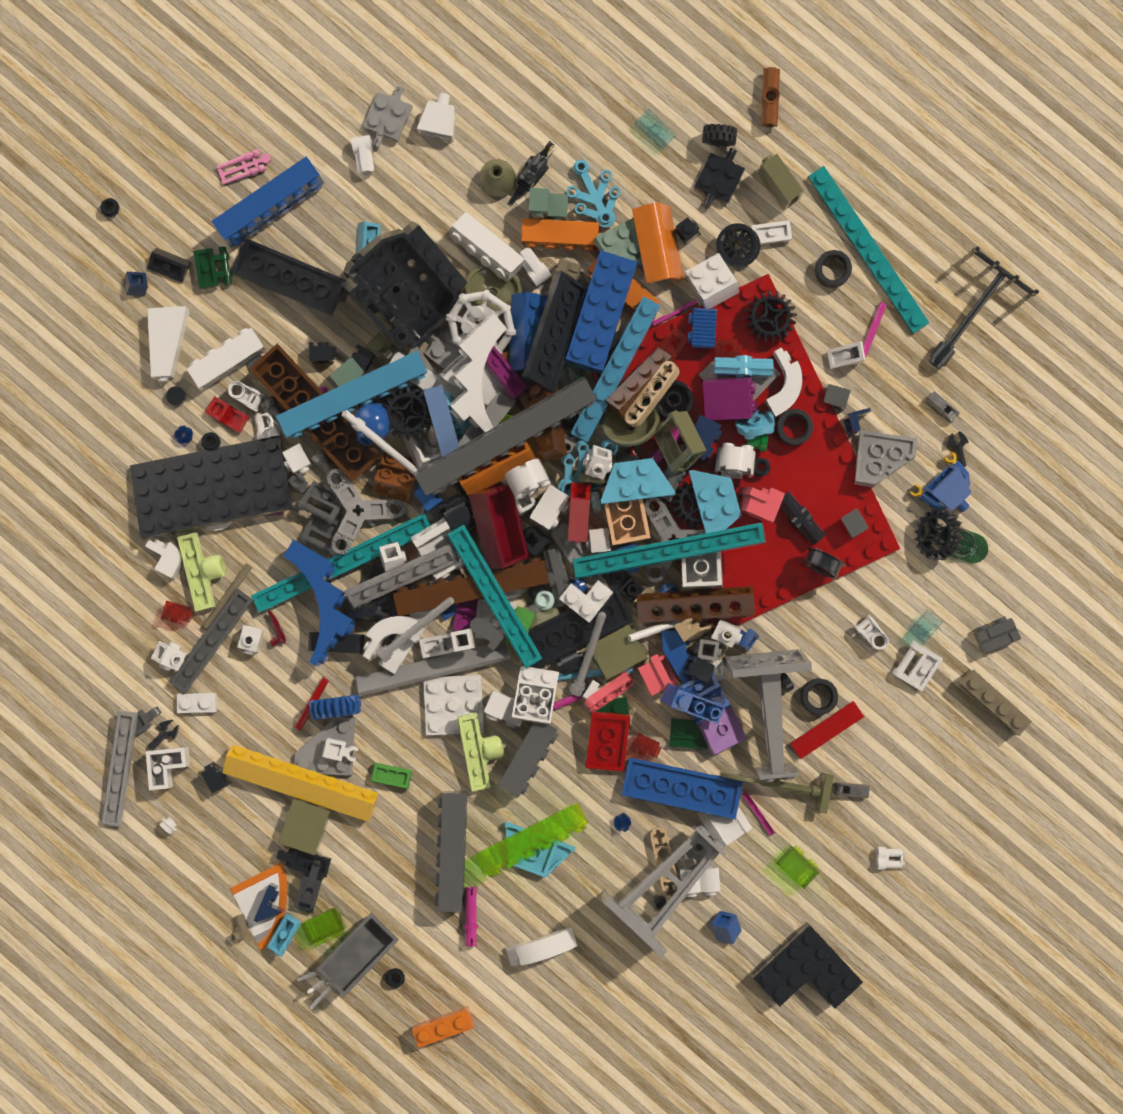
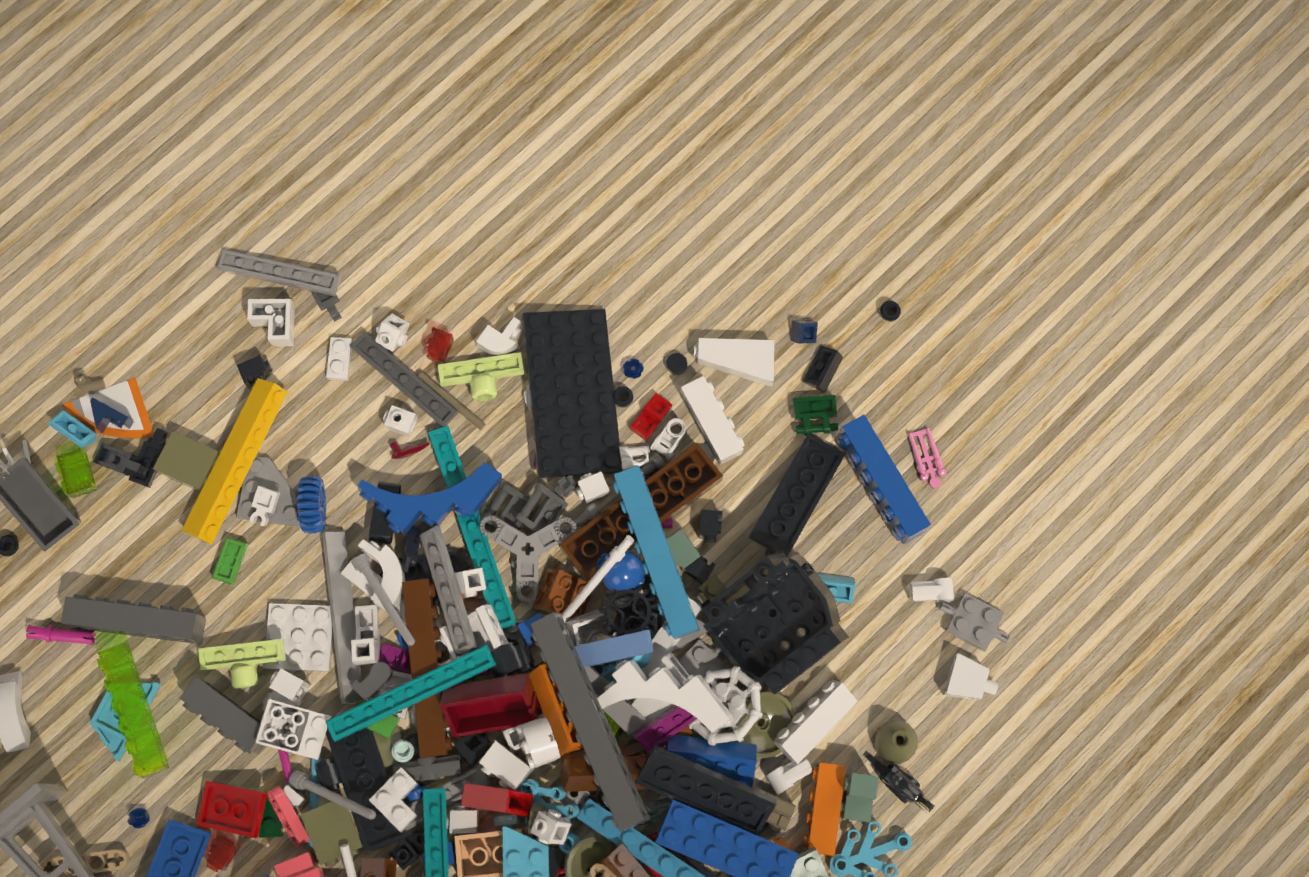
camera: 90 degrees right, 10 degrees down
(163, 734) = (310, 322): black bar -> none
(168, 825) = (211, 318): white plate -> none
(316, 695) = (328, 485): red bar -> none
(658, 902) = (39, 852): black plate -> none

